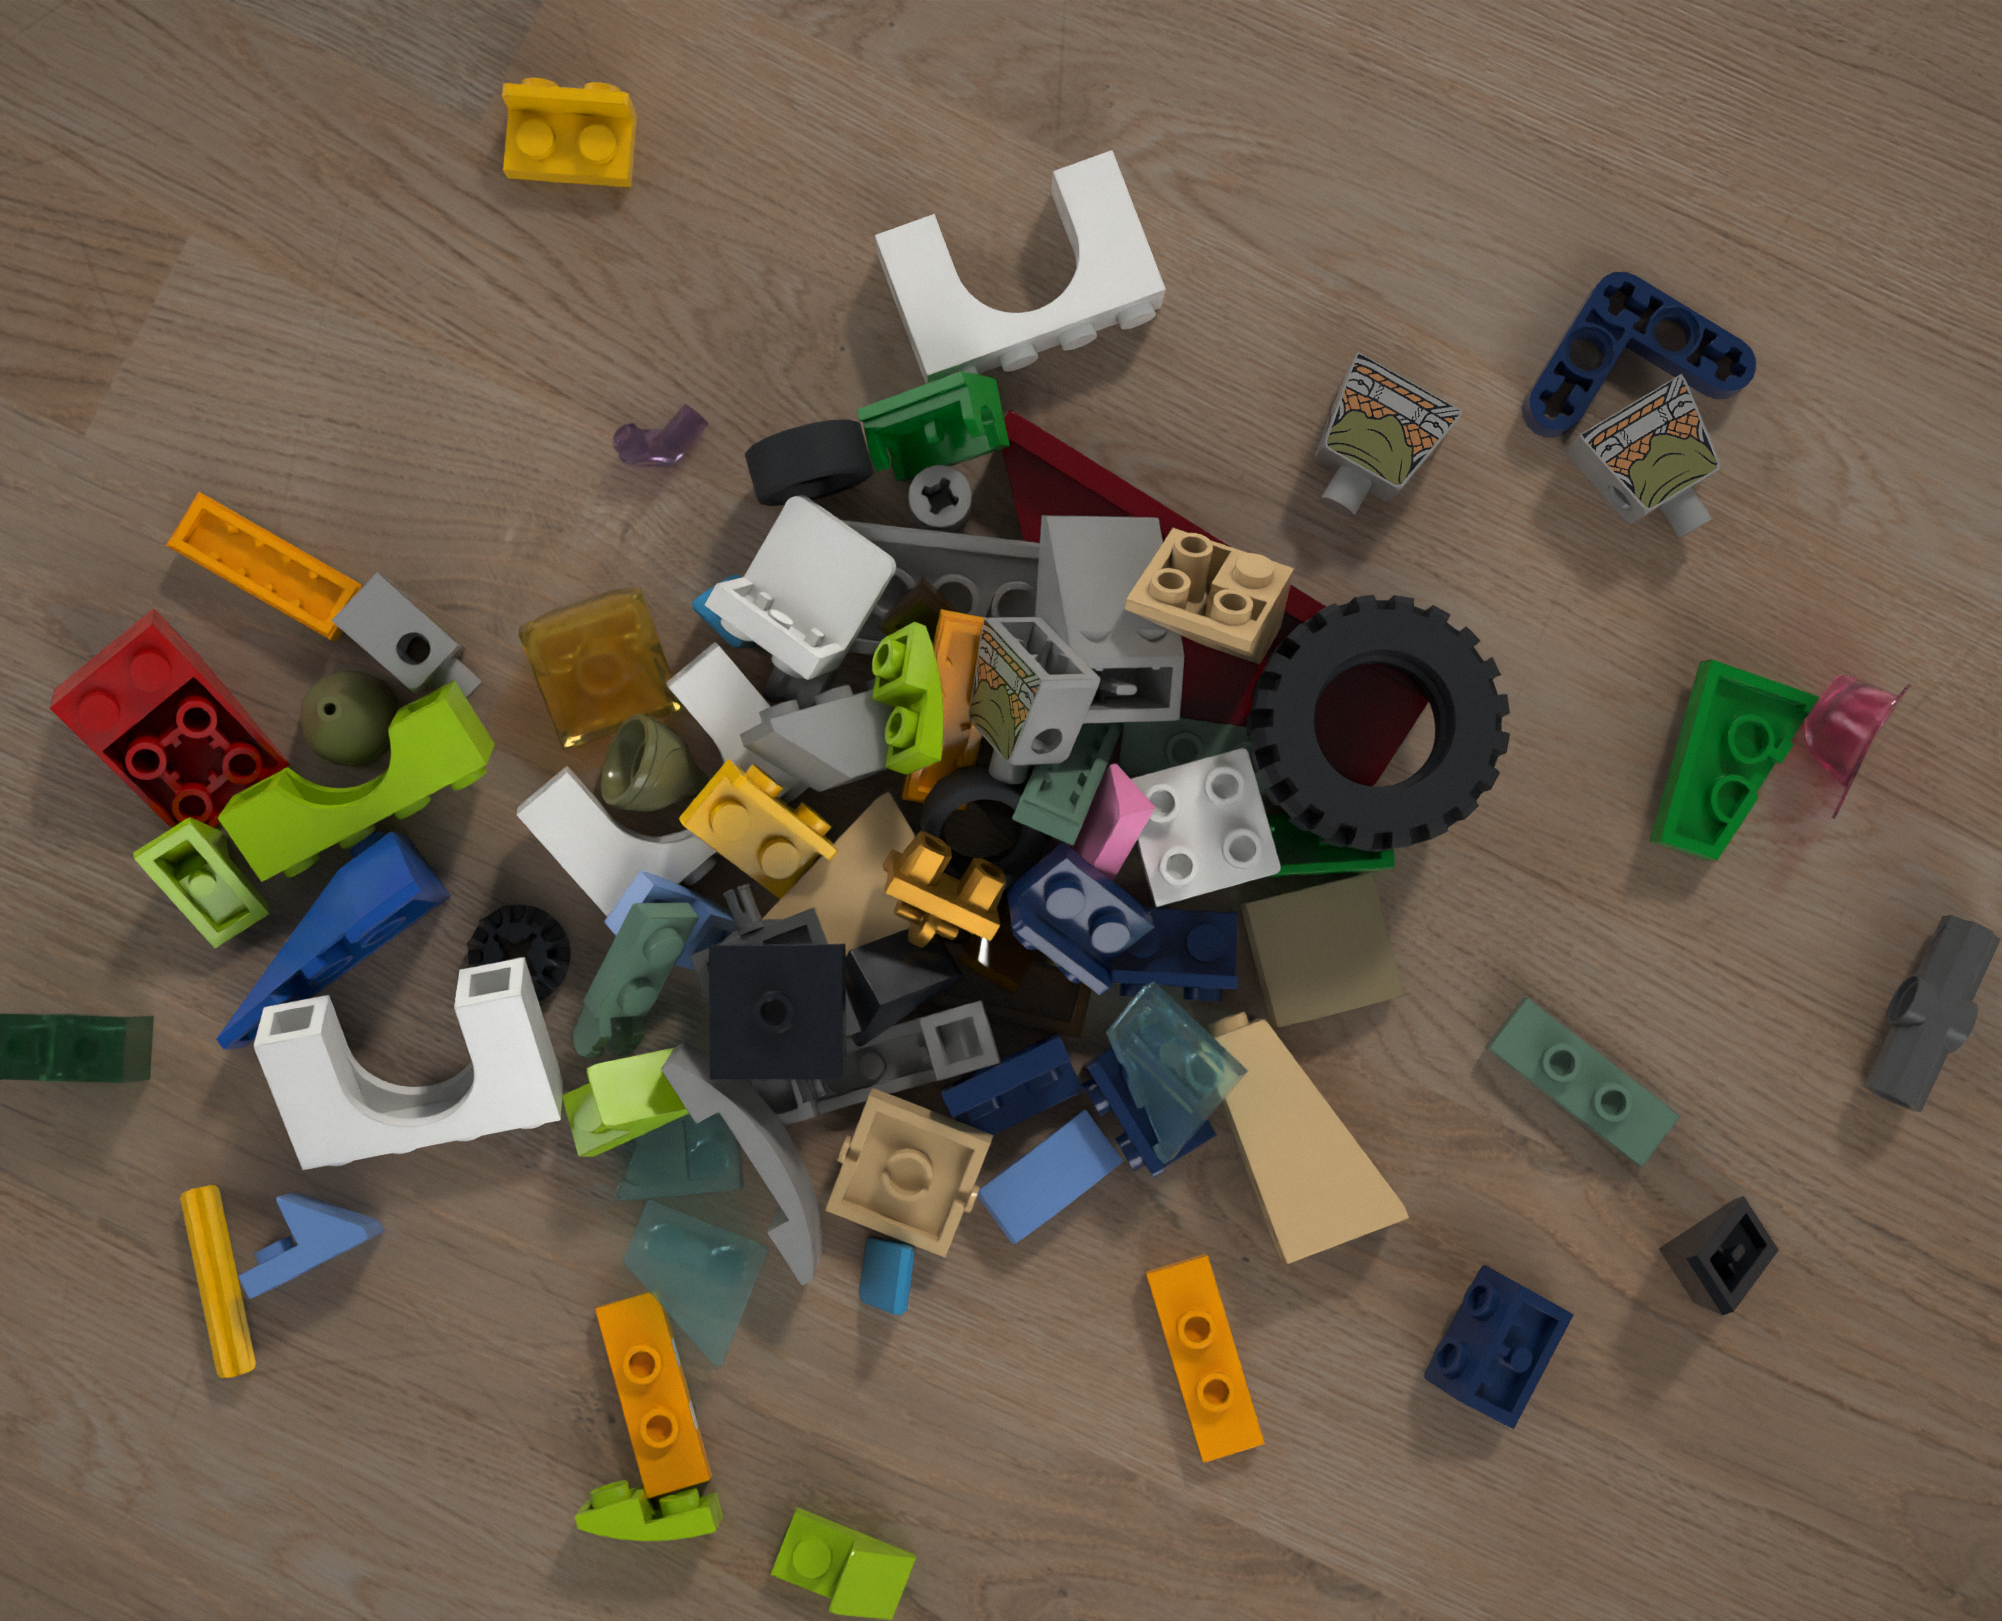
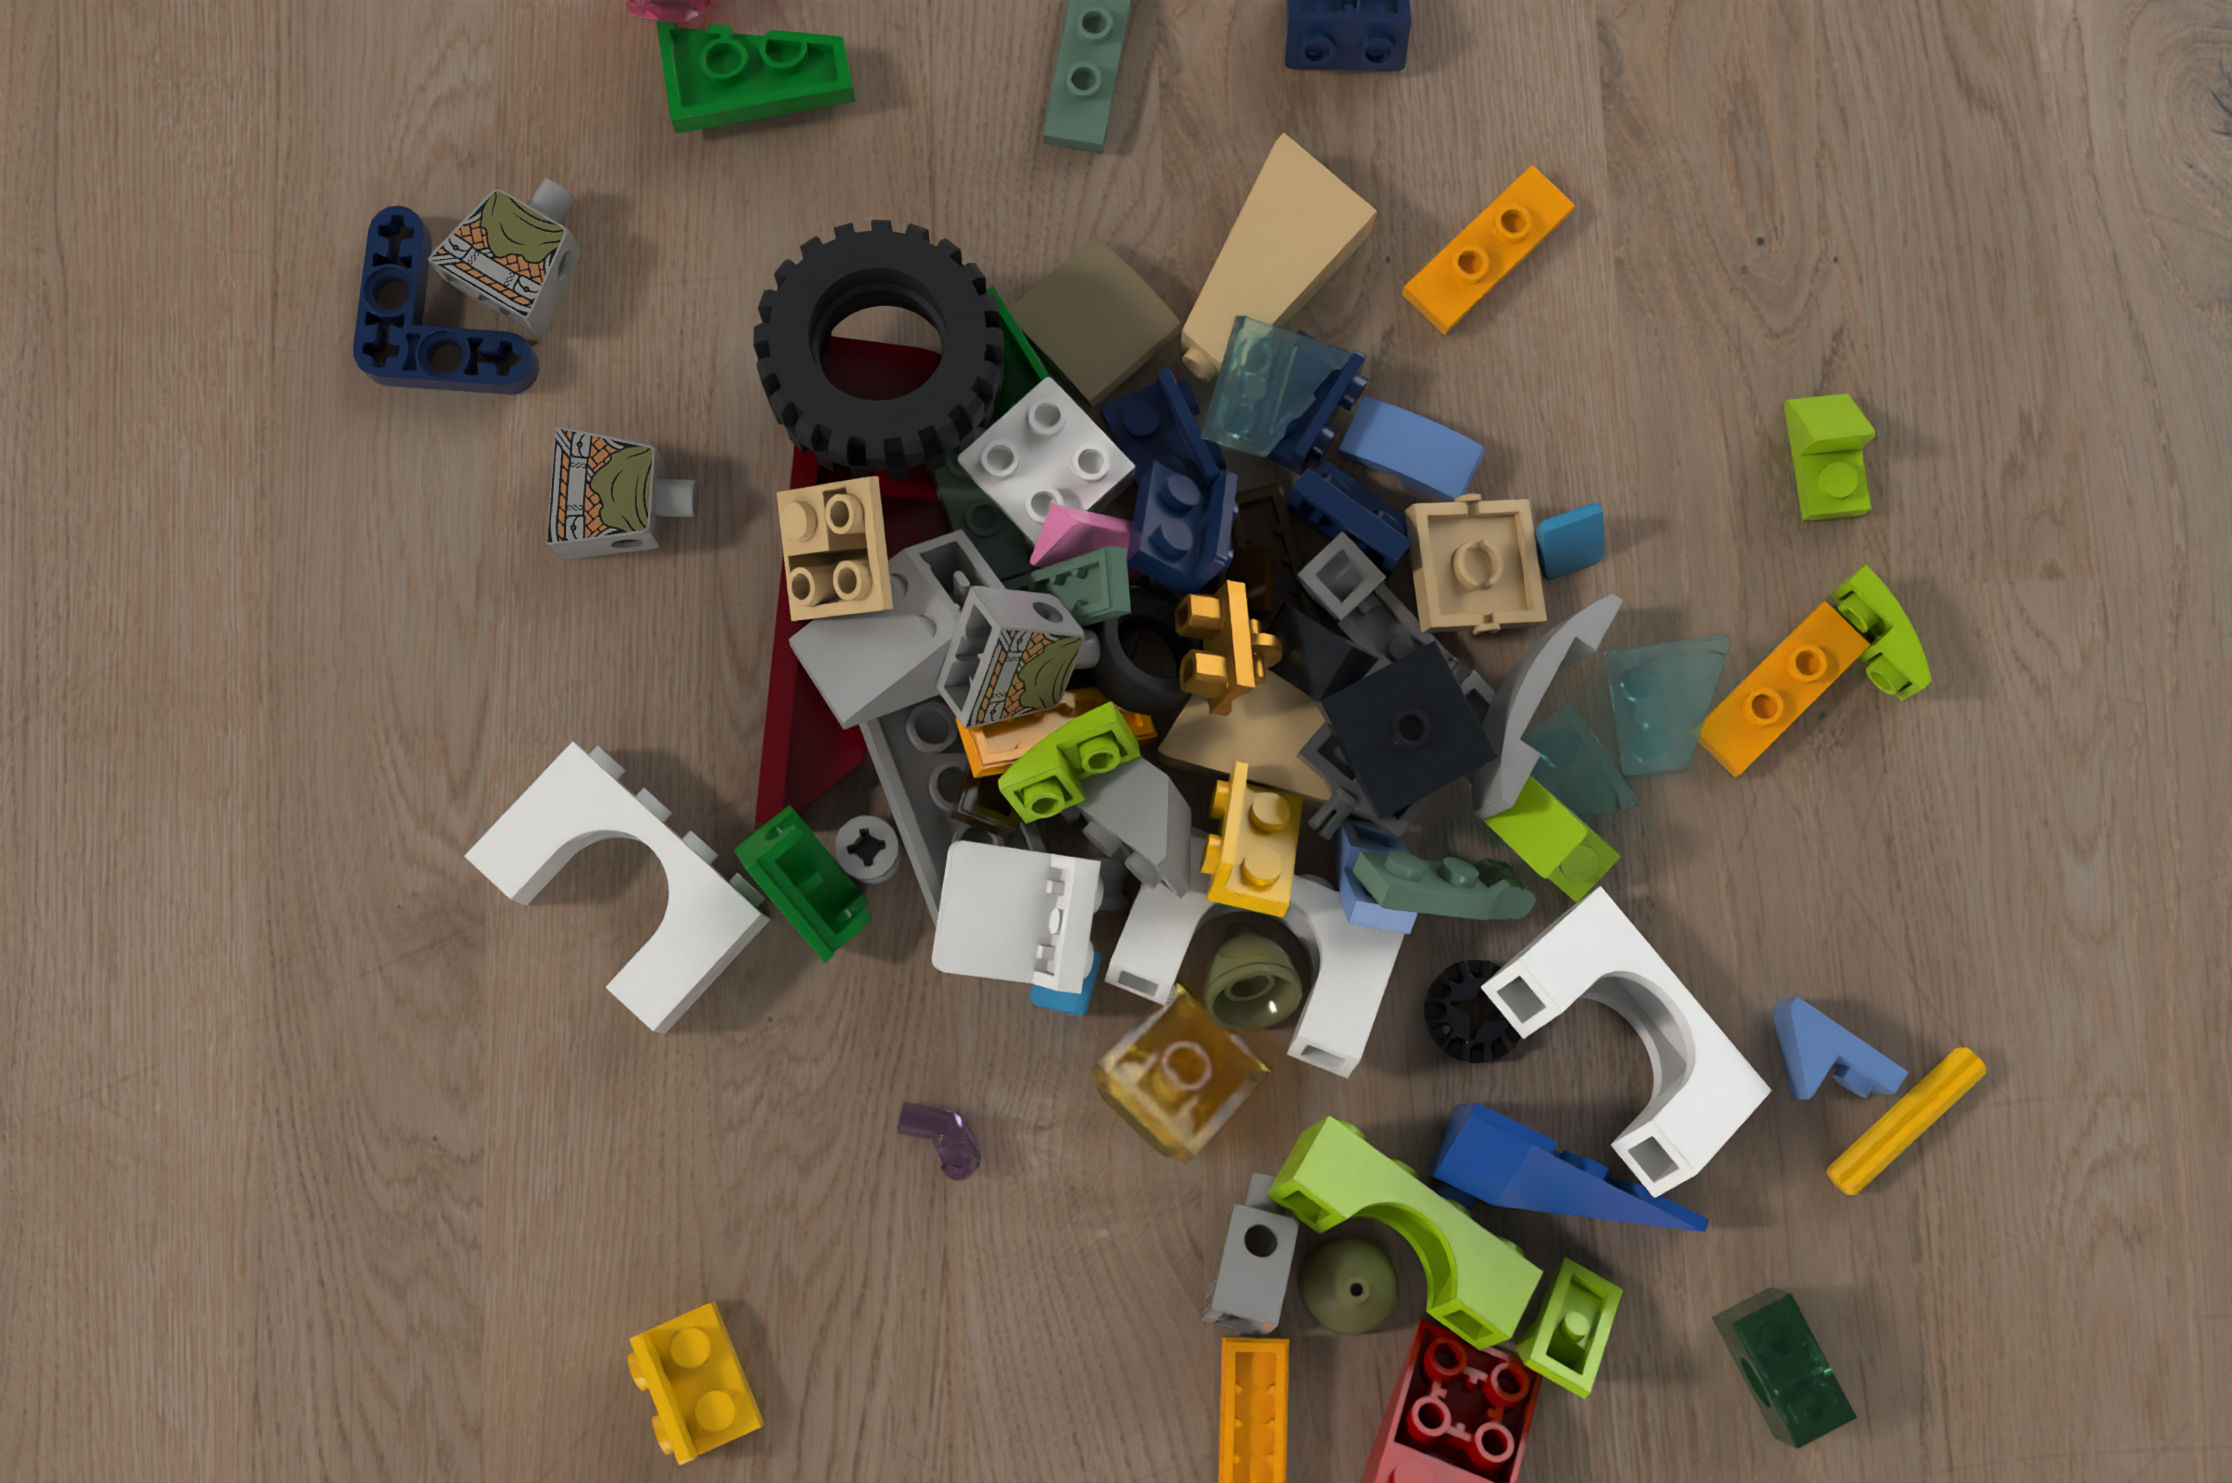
camera: 110 degrees left, 5 degrees down
(809, 461) = (897, 978): black tyre -> none

